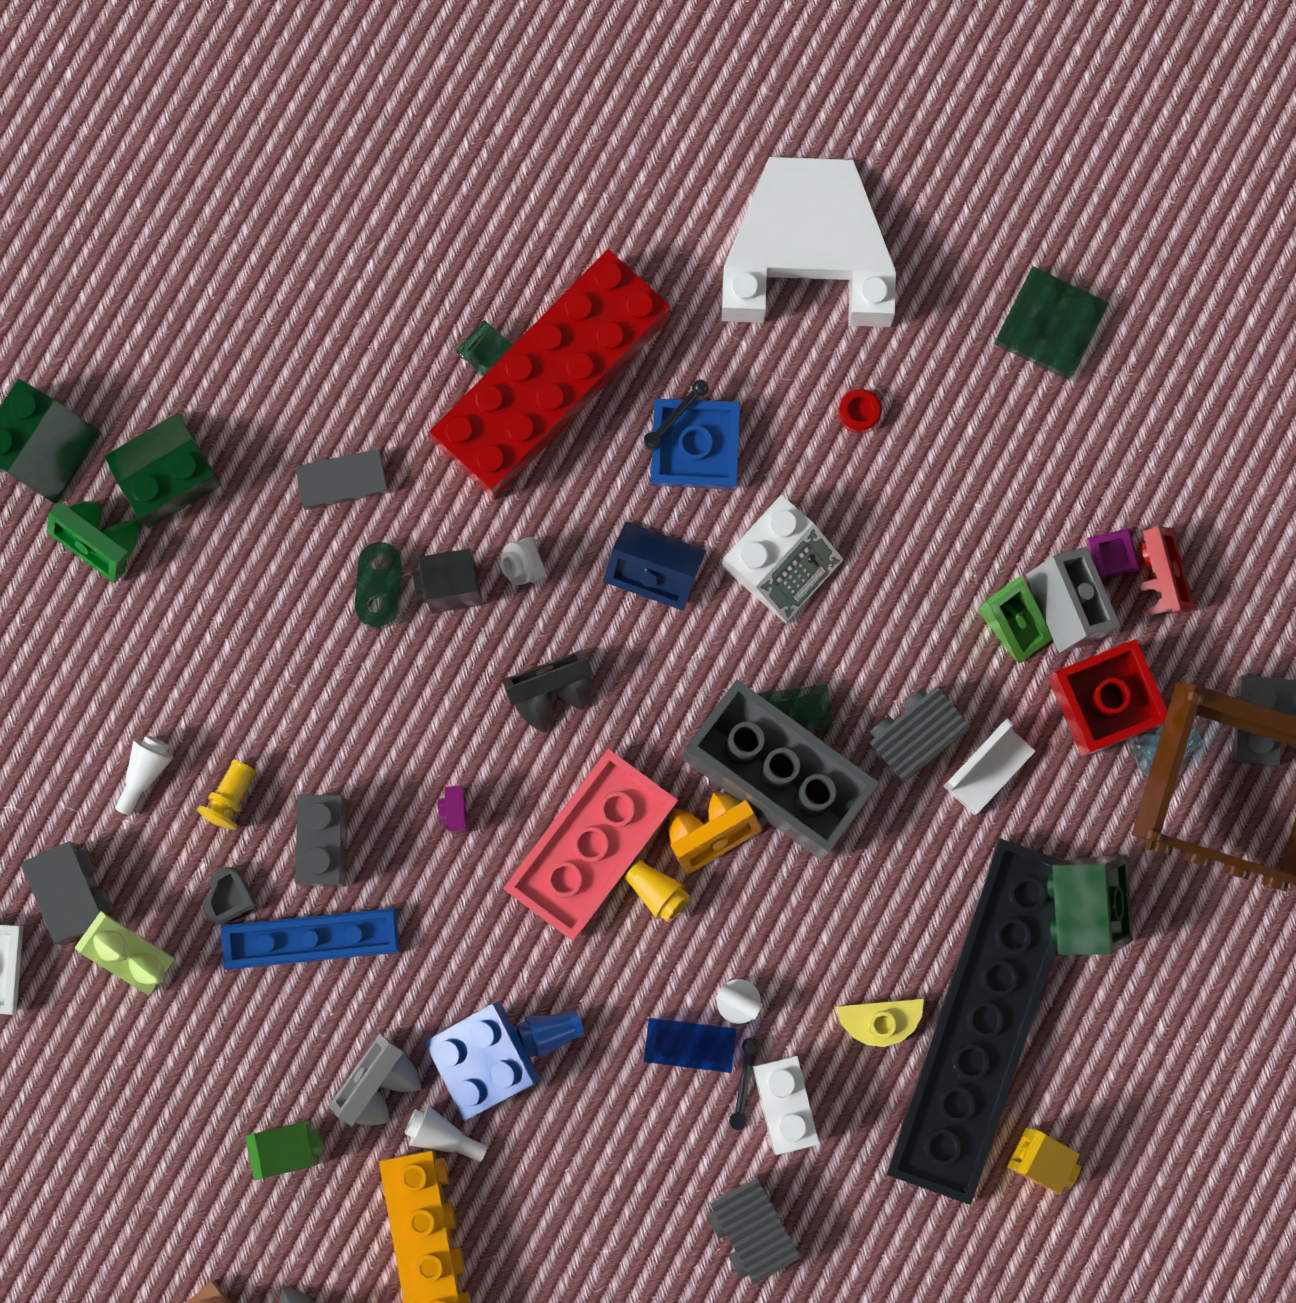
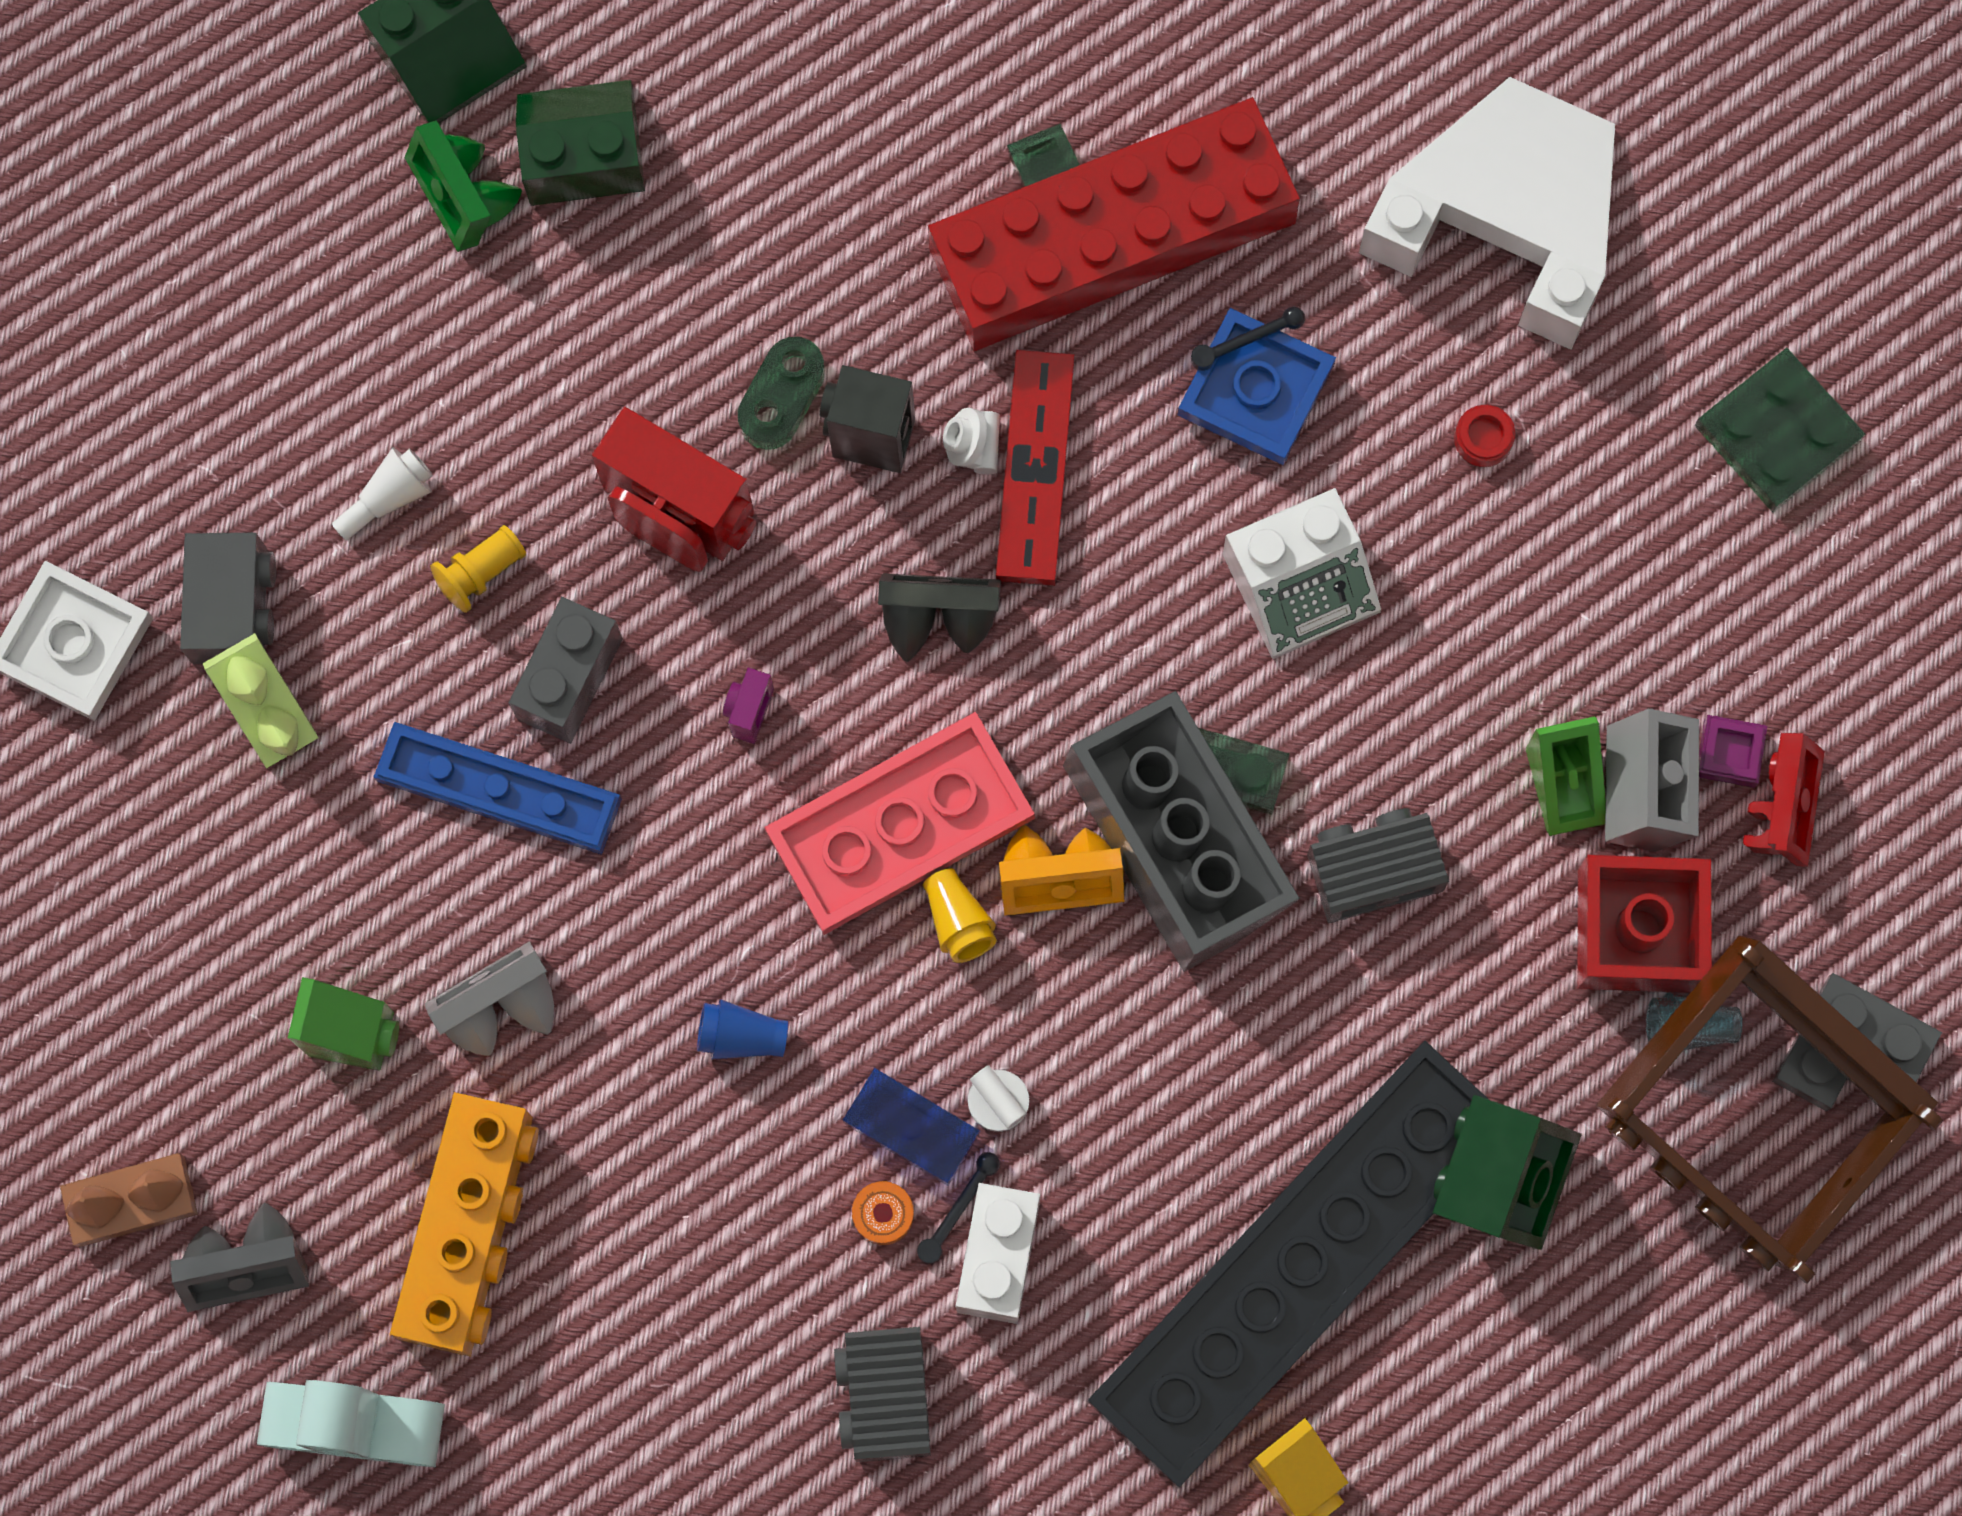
camera: 25 degrees right, 5 degrees down
(228, 896) = (421, 692): dark grey tile -> none
(339, 690) = (672, 492): none -> red brick
(341, 479) = (795, 245): dark grey tile -> none
(434, 1132) = (541, 1092): white cone -> none
(482, 1060) = (641, 1028): plate -> none
(572, 562) = (1035, 467): none -> red tile
(654, 565) = (1135, 514): dark blue panel -> none
(696, 1110) = (883, 1213): none -> orange tile
(881, 1022) = (1169, 1208): light yellow plate -> none
(989, 768) = (1451, 946): white panel -> none

